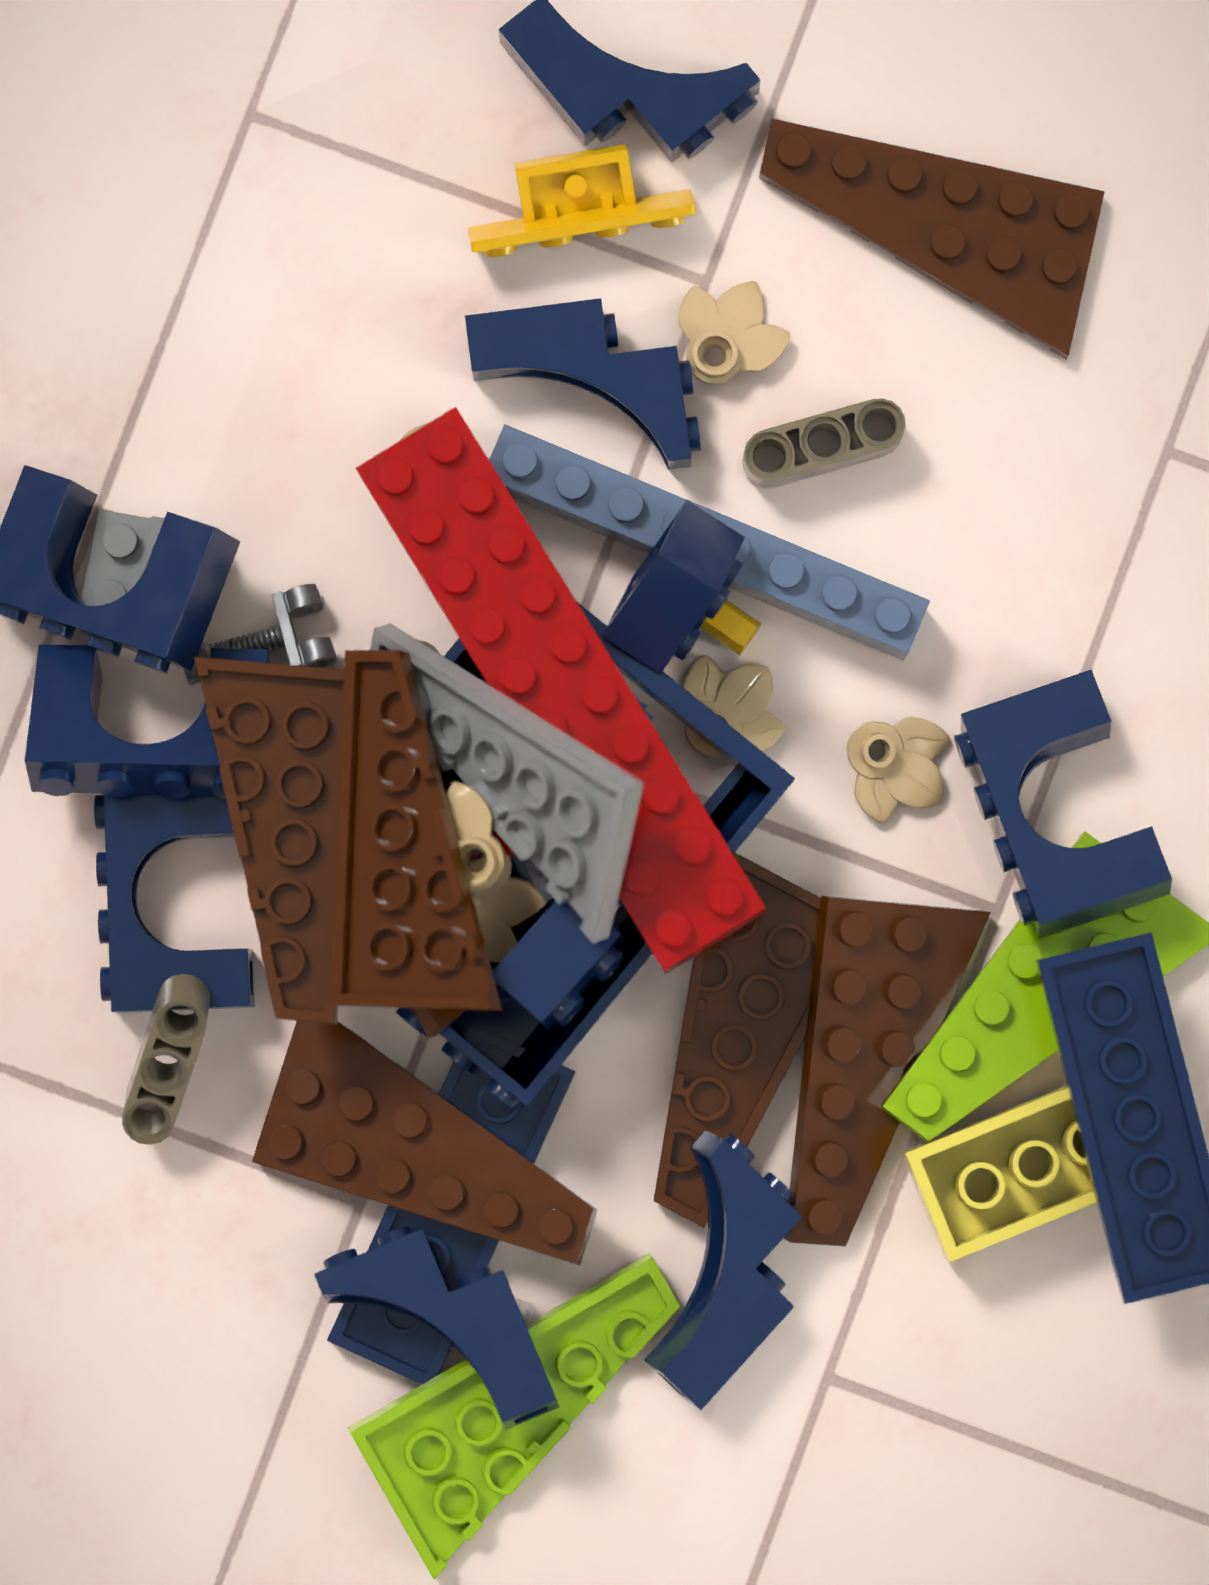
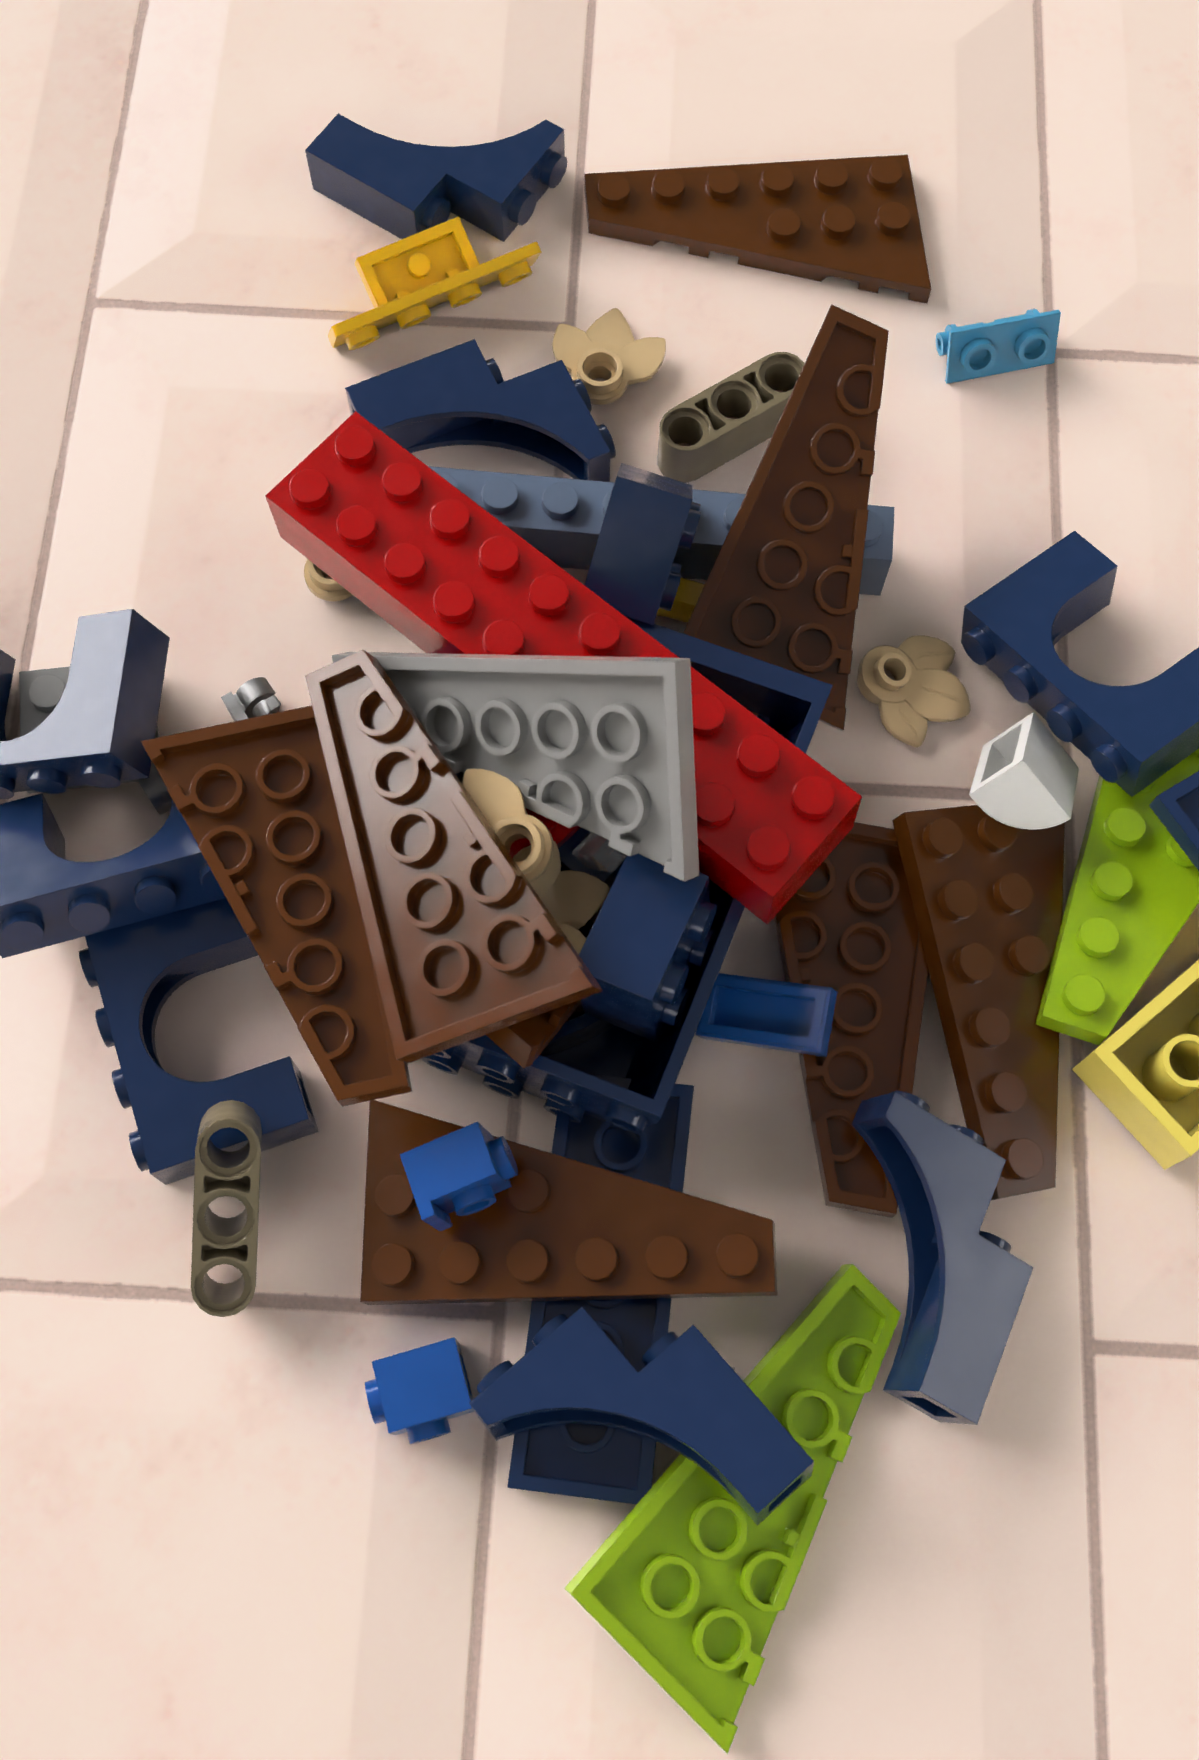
camera: 25 degrees left, 15 degrees down
(280, 1247) = (420, 1390): none -> blue brick
(357, 1093) = (458, 1173): none -> blue brick
(658, 1031) = (769, 1014): none -> blue tile
(809, 637) = (797, 545): none -> reddish brown wing
(952, 893) = (1025, 777): none -> white brick
(1137, 438) = (999, 345): none -> dark azure hinge

